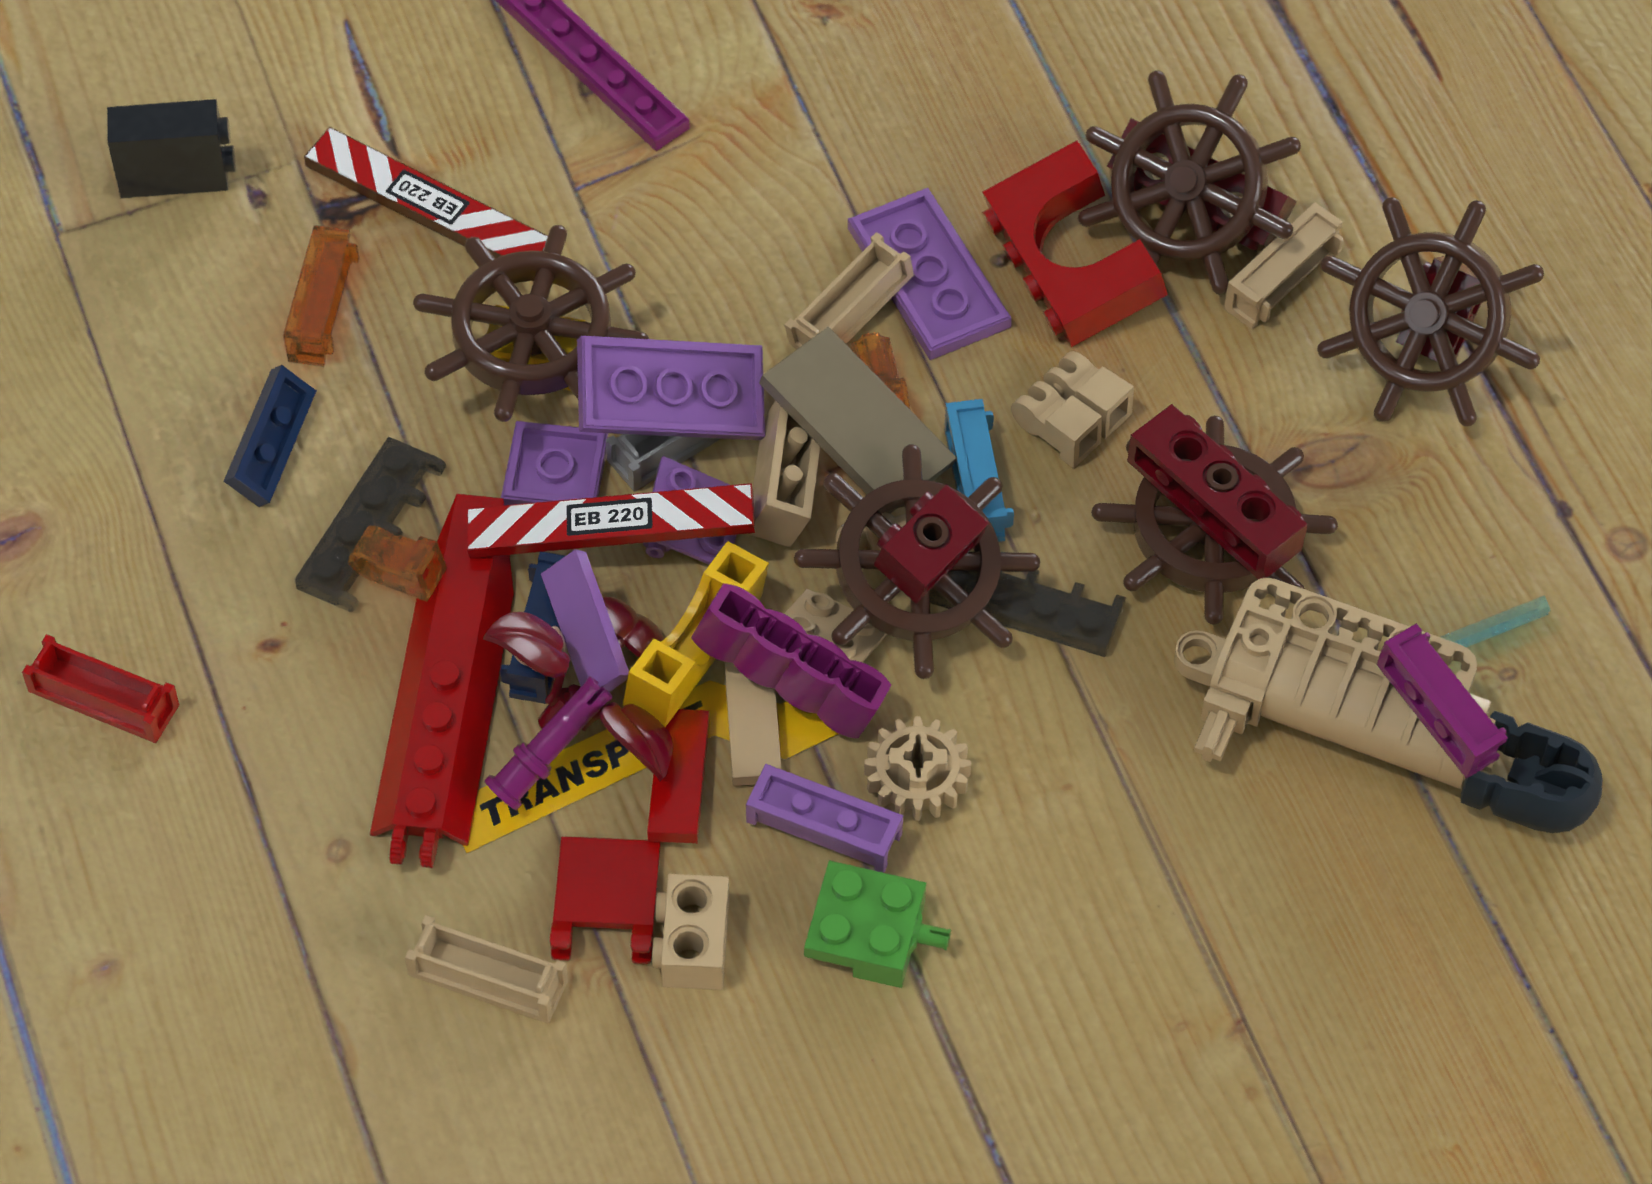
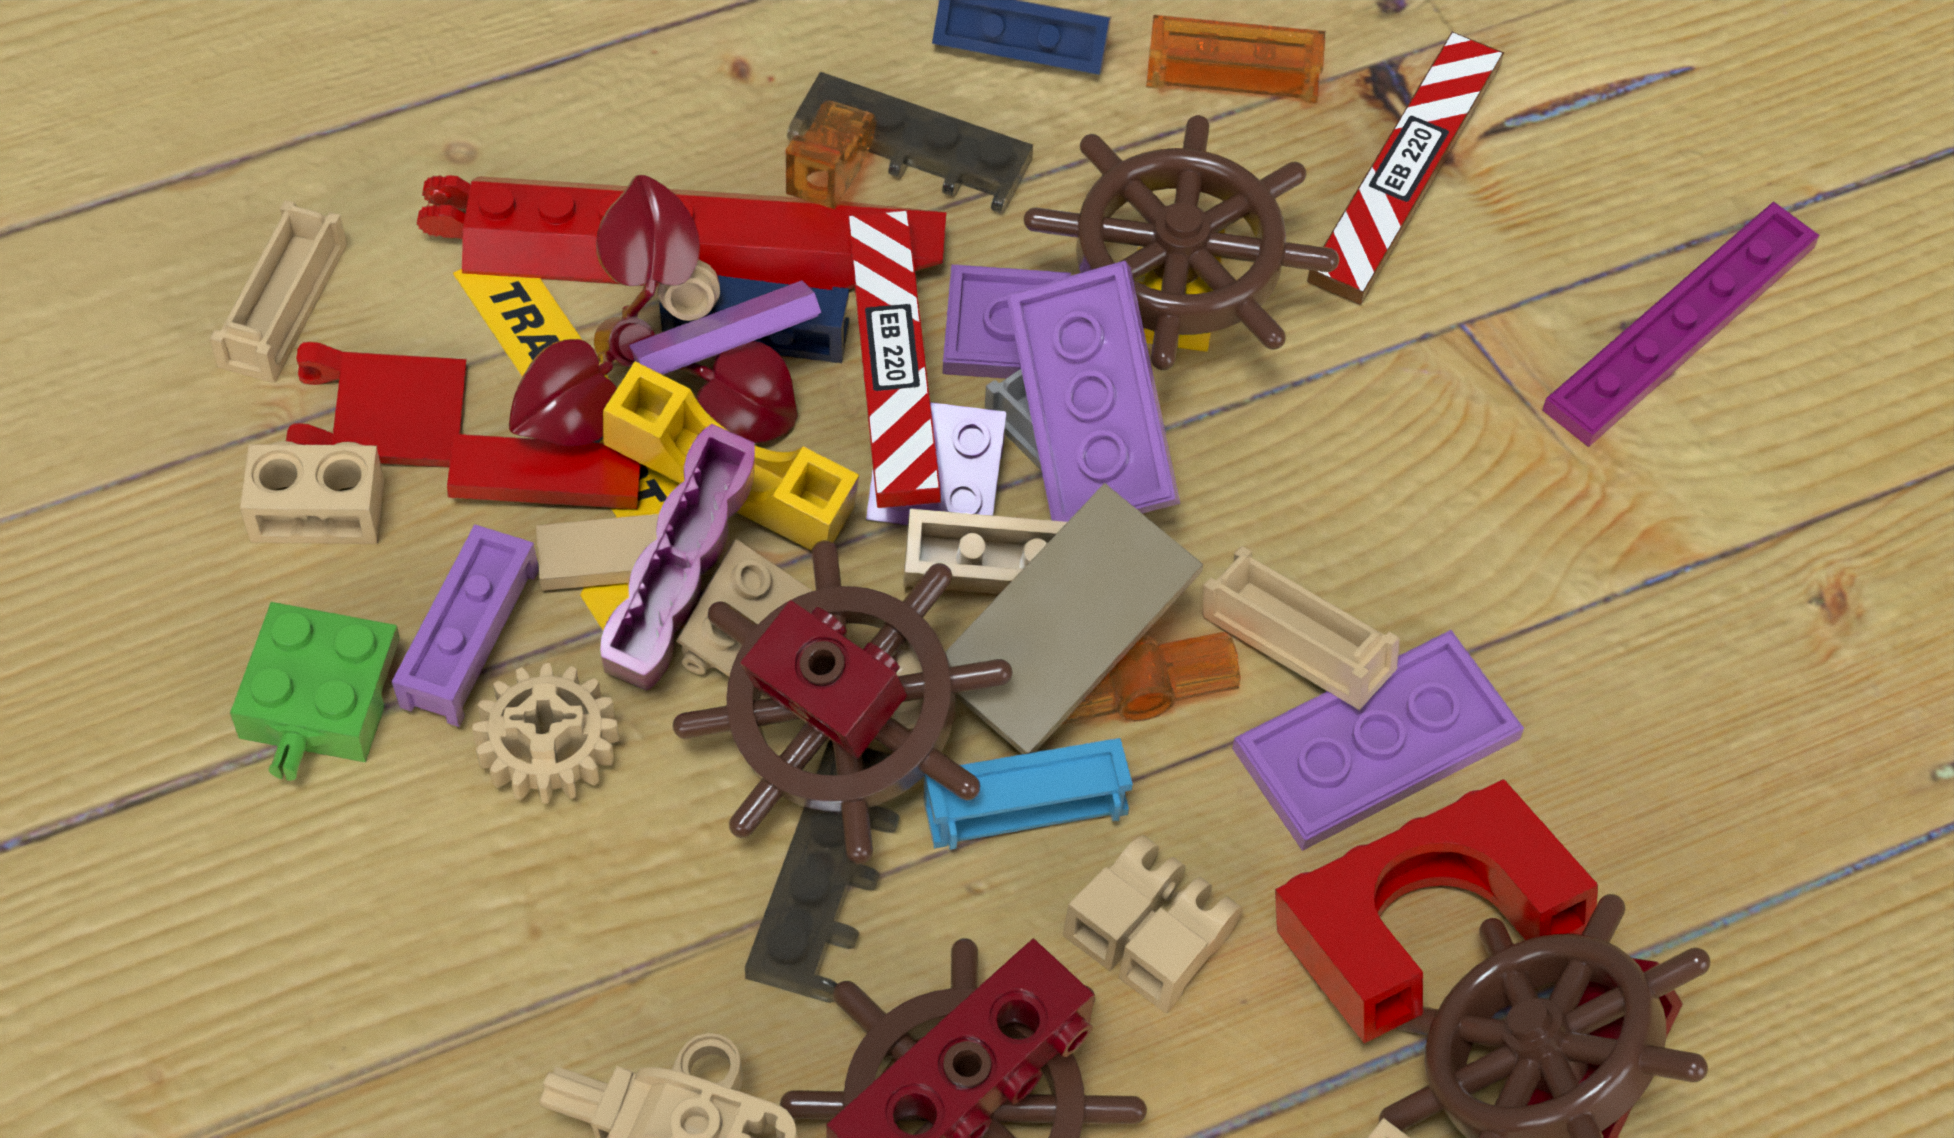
camera: 85 degrees right, 0 degrees up
(533, 759) = (550, 305): magenta pin -> none

